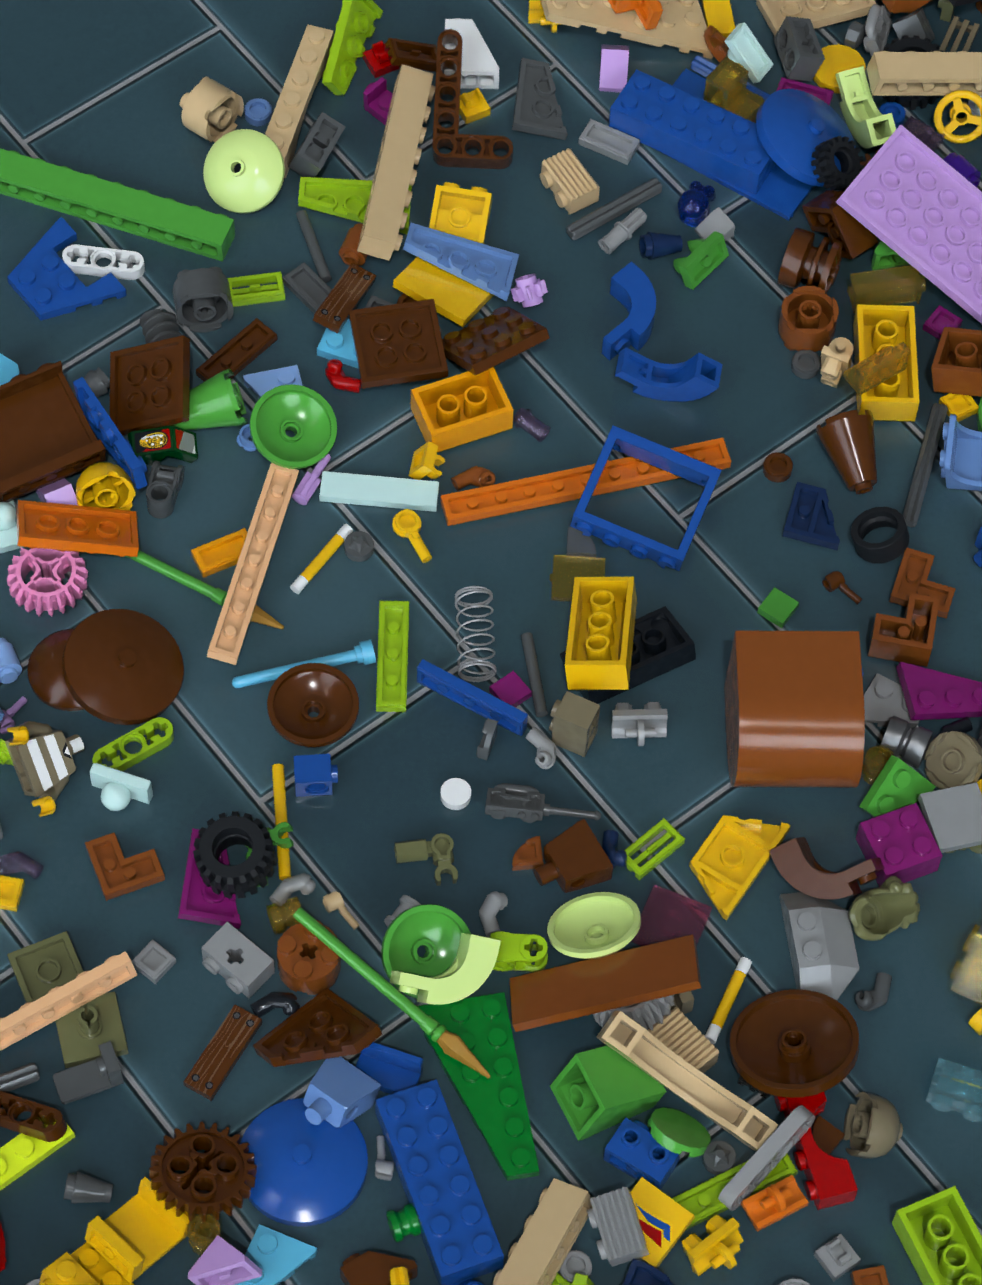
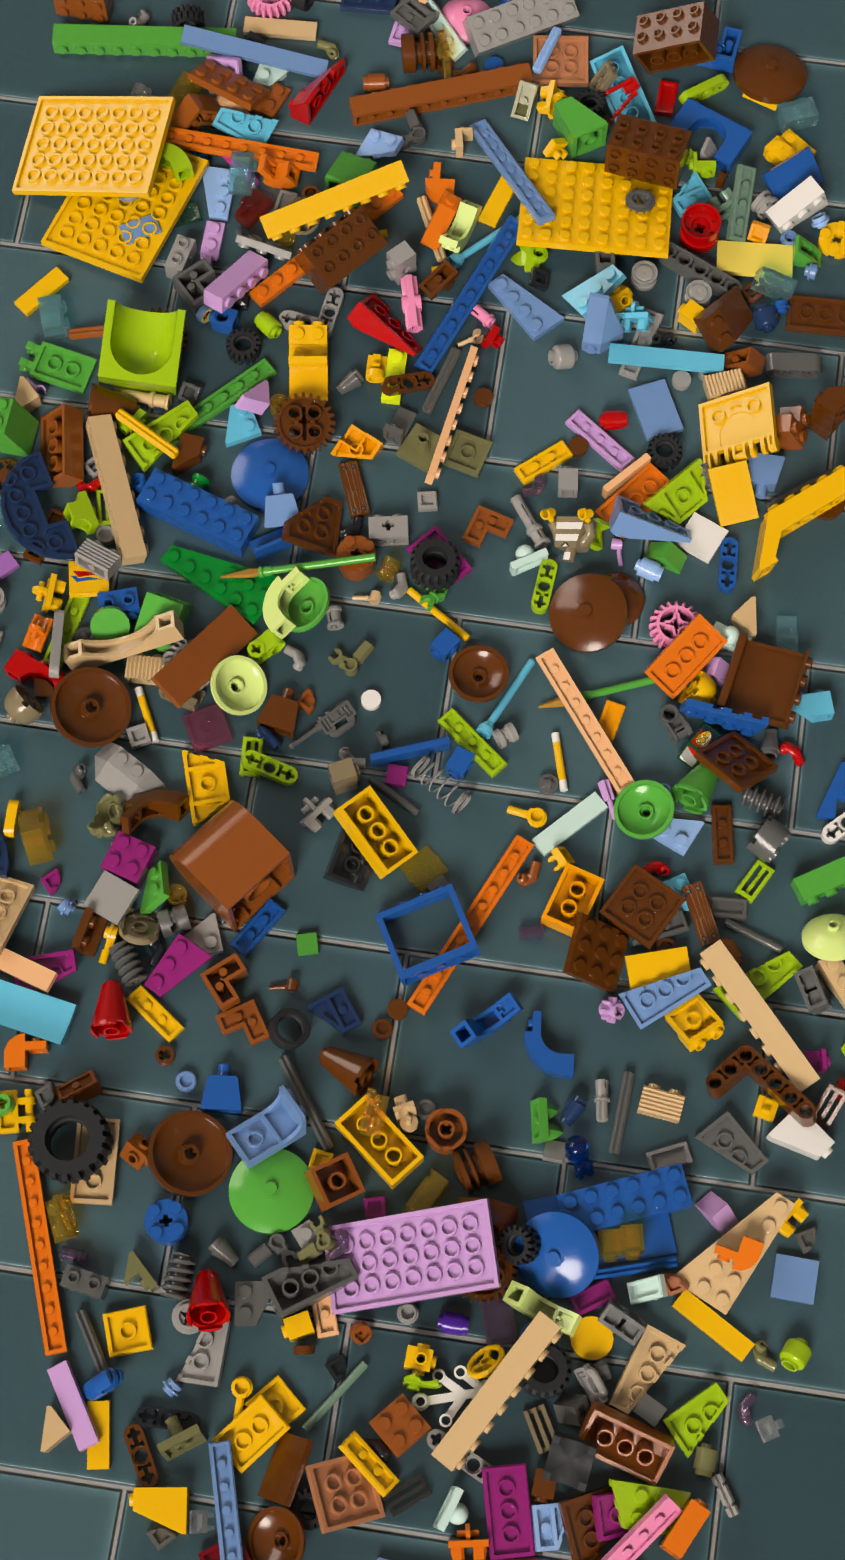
camera: 140 degrees right, 10 degrees up
(30, 1185) = (376, 361): none -> yellow tile
(49, 1167) = (375, 375): none -> yellow tile
(73, 364) = (788, 747): none -> red arm
(73, 816) = (533, 528): none -> light grey pin
(160, 1101) = (357, 445): none -> light orange slope
(351, 626) = (505, 735): none -> light grey wheel
(431, 639) = (460, 763): none -> blue brick
(645, 824) = (277, 764): none -> lime beam
(744, 471) = (397, 1009): none -> reddish brown tile
(761, 978) = (138, 736): none -> light grey plate

